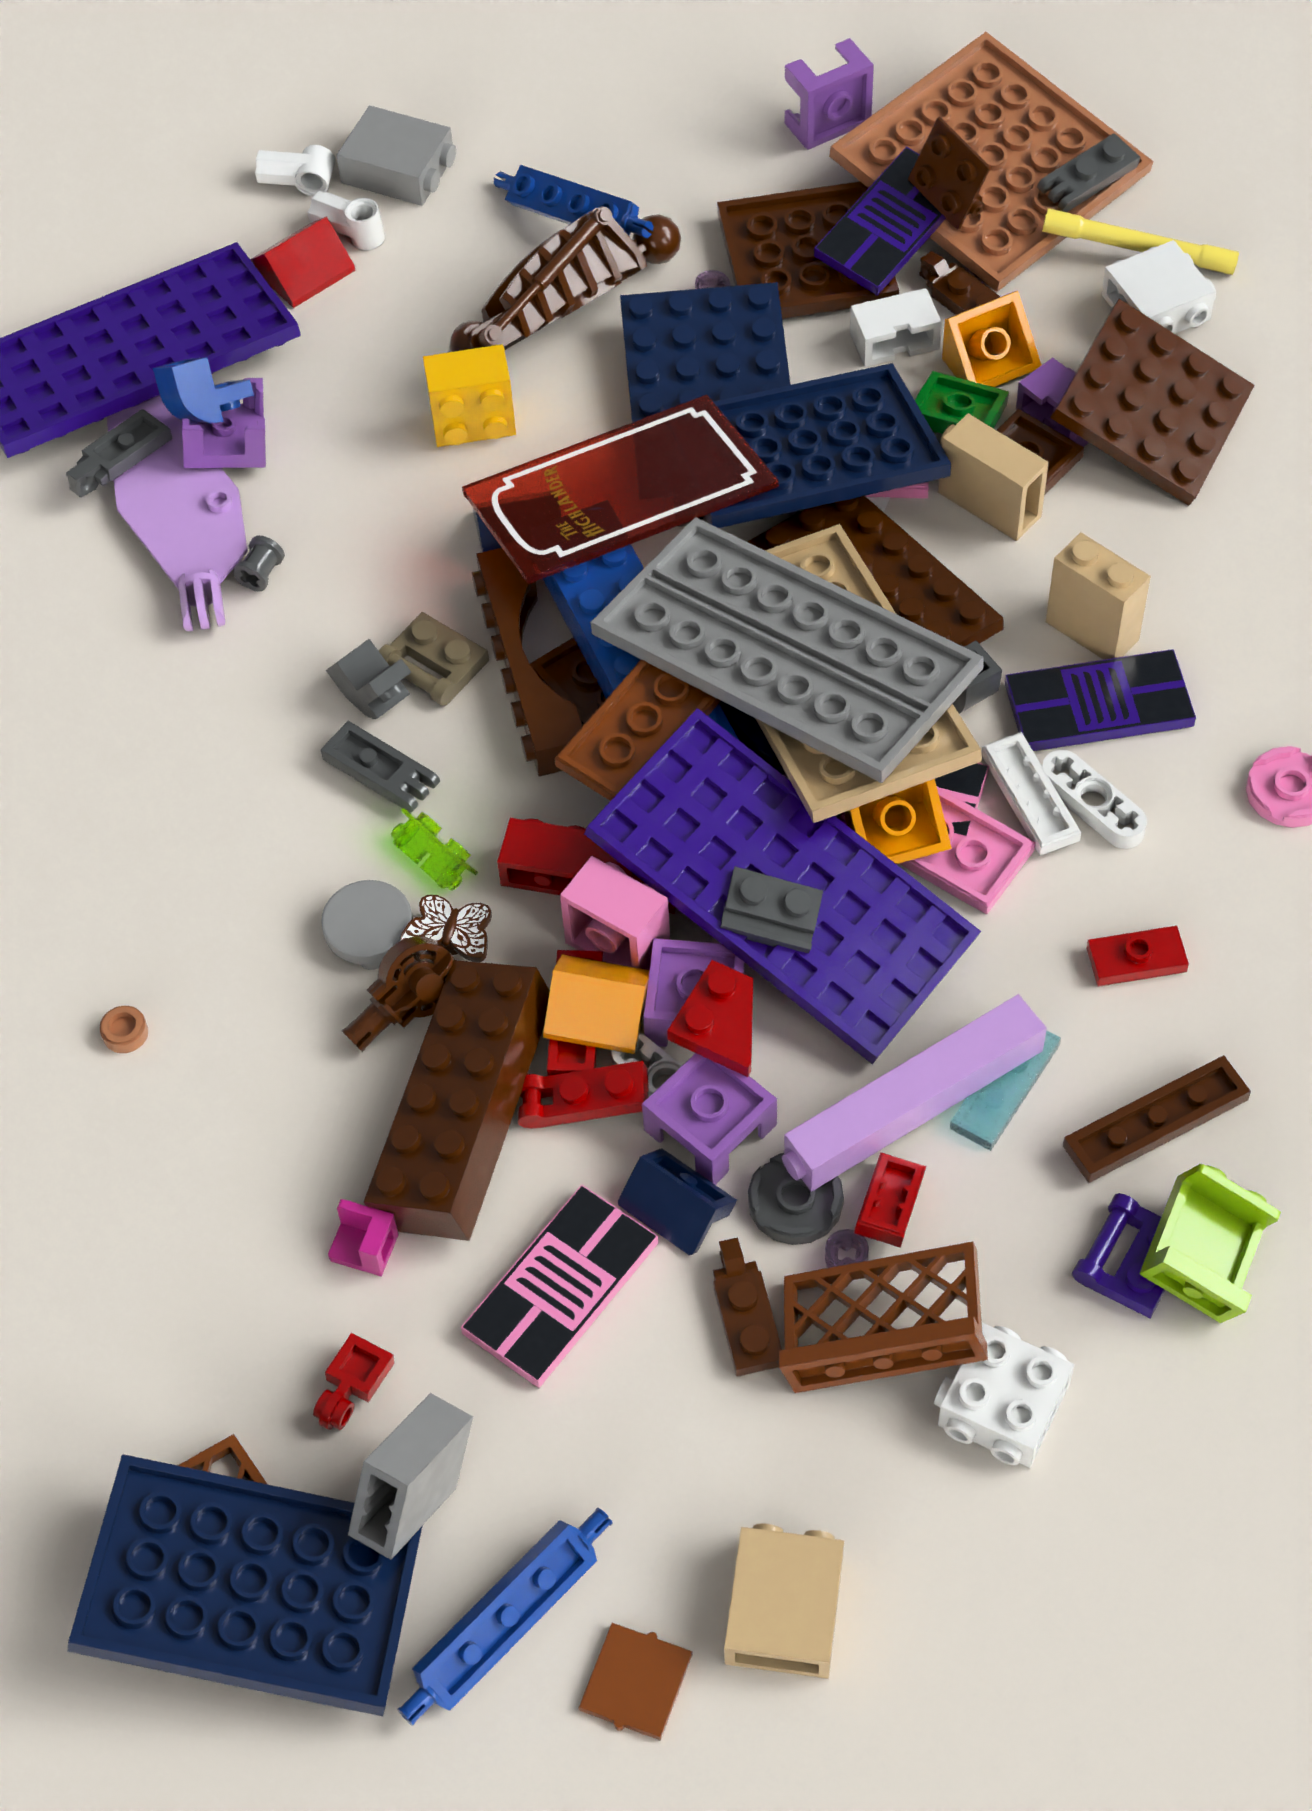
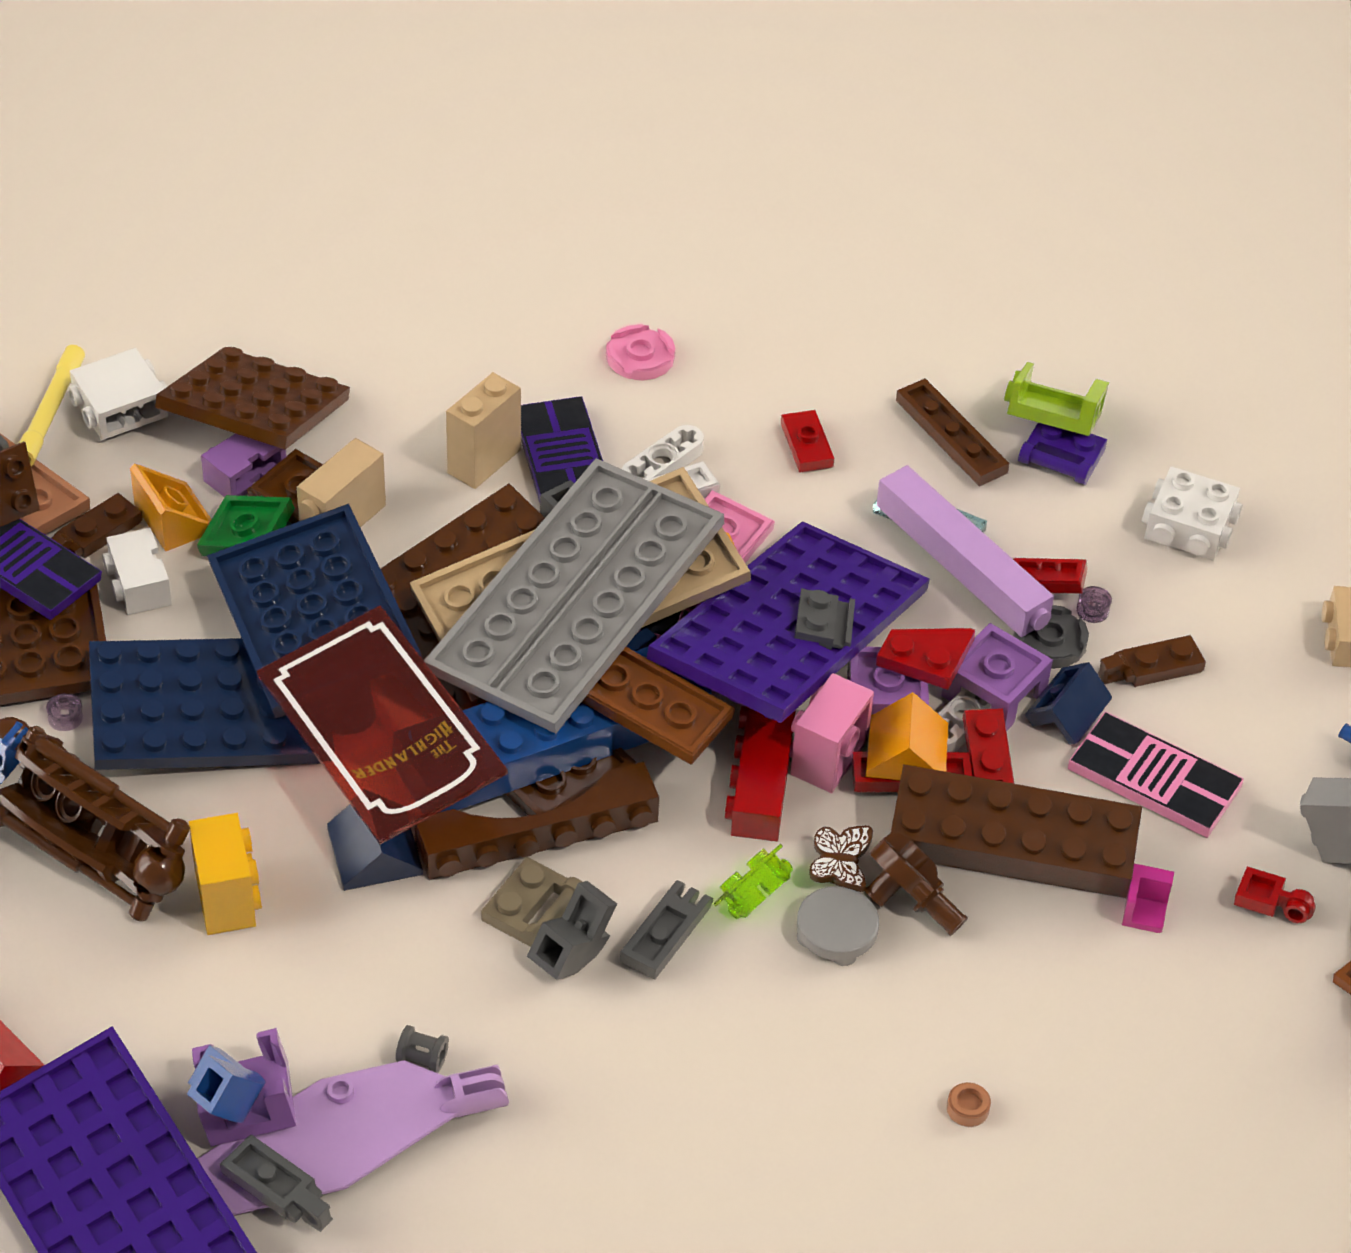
camera: 100 degrees left, 10 degrees down
(883, 1349) = (1186, 560): dark orange fence -> none

